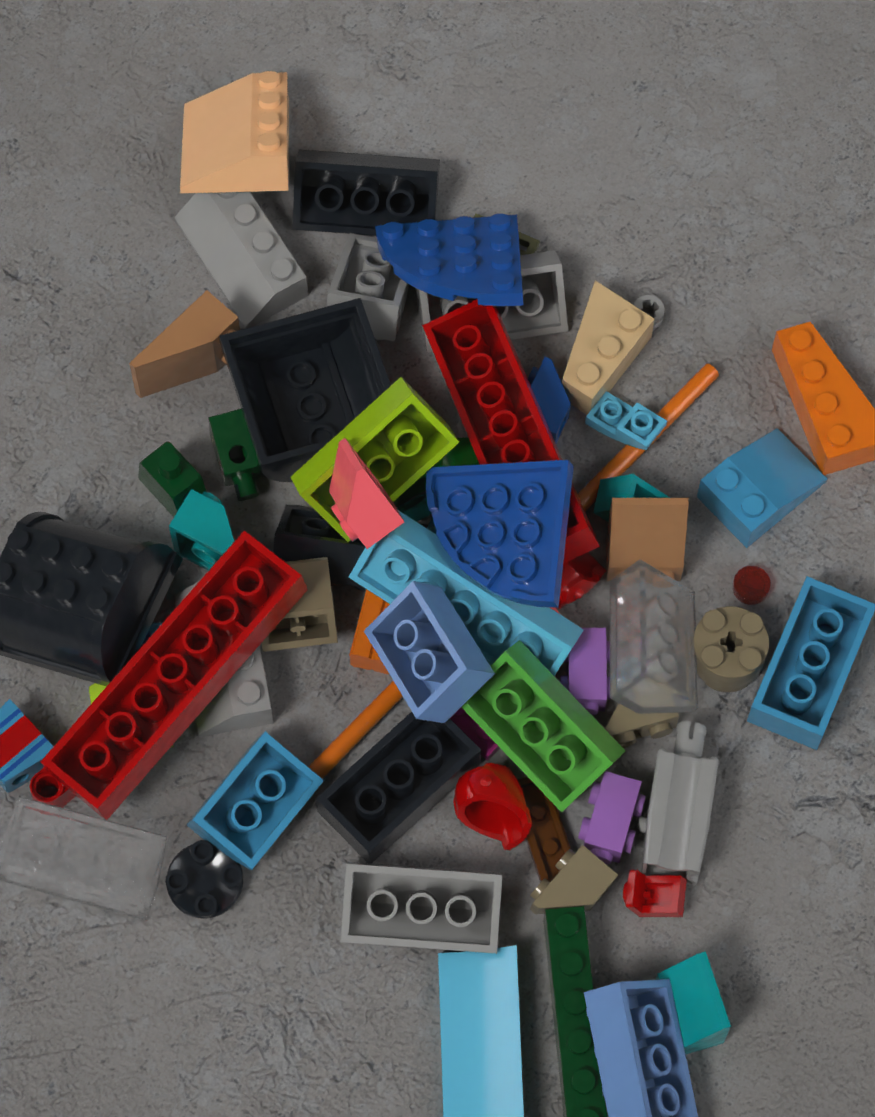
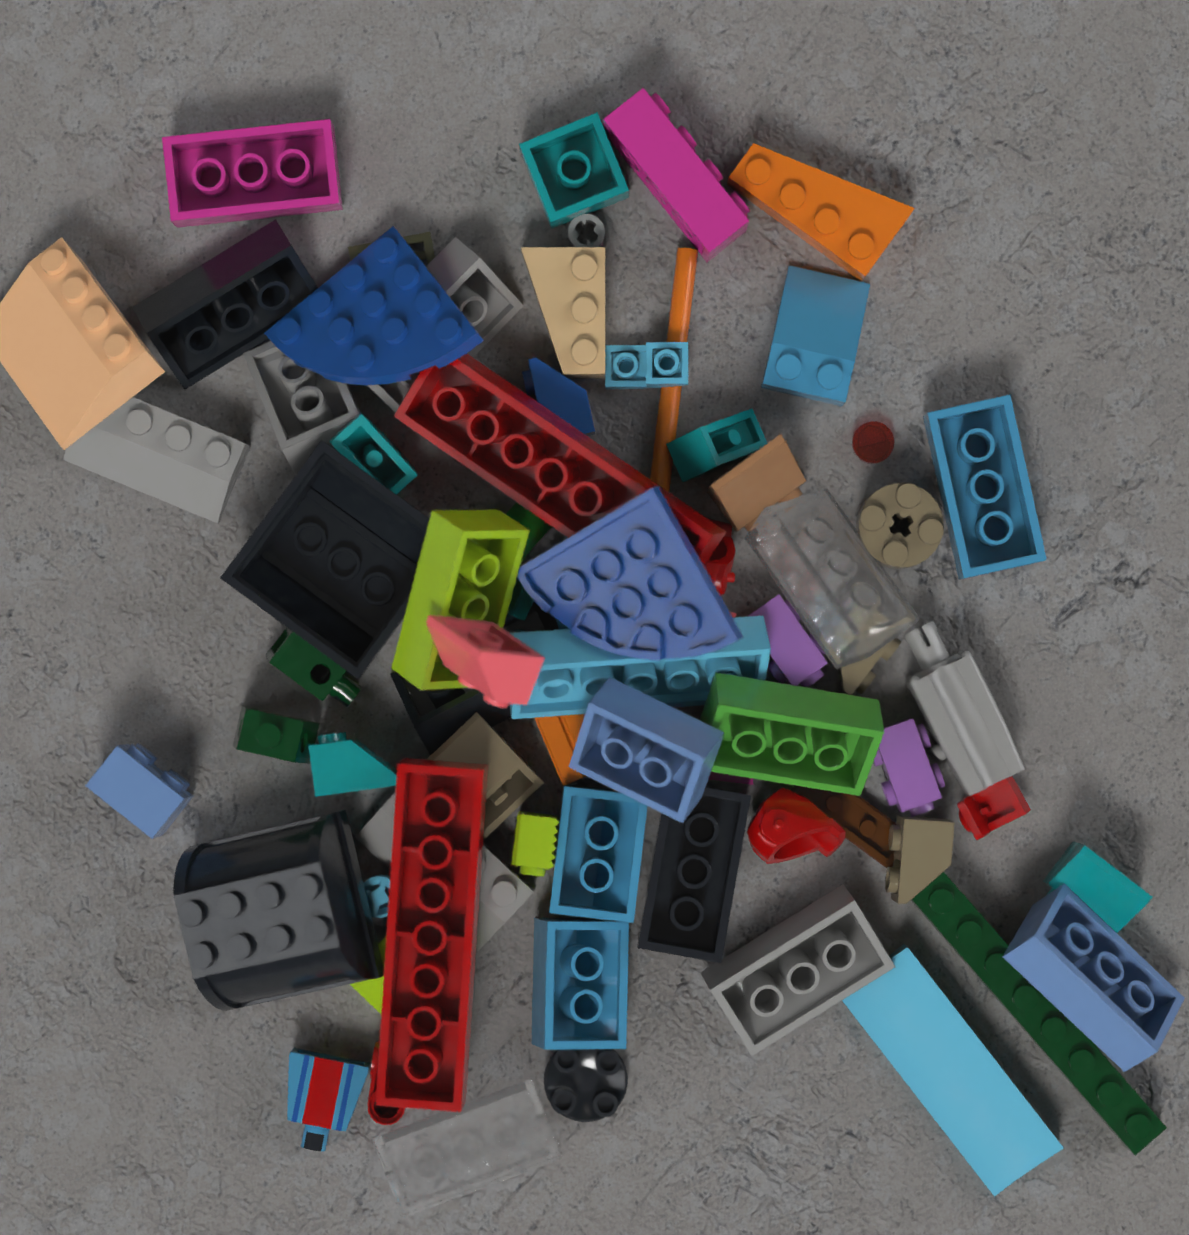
camera: 30 degrees left, 20 degrees up
(53, 450) = (140, 789): none -> medium blue brick
(185, 348) = (188, 591): medium nougat slope -> none
(299, 677) = (535, 842): none -> lime brick
(337, 715) = (598, 854): none -> dark azure slope
(390, 337) = (374, 453): none -> teal slope
(446, 121) = (252, 173): none -> dark pink brick
(670, 261) = (574, 170): none -> teal brick
(741, 308) = (675, 174): none -> dark pink brick

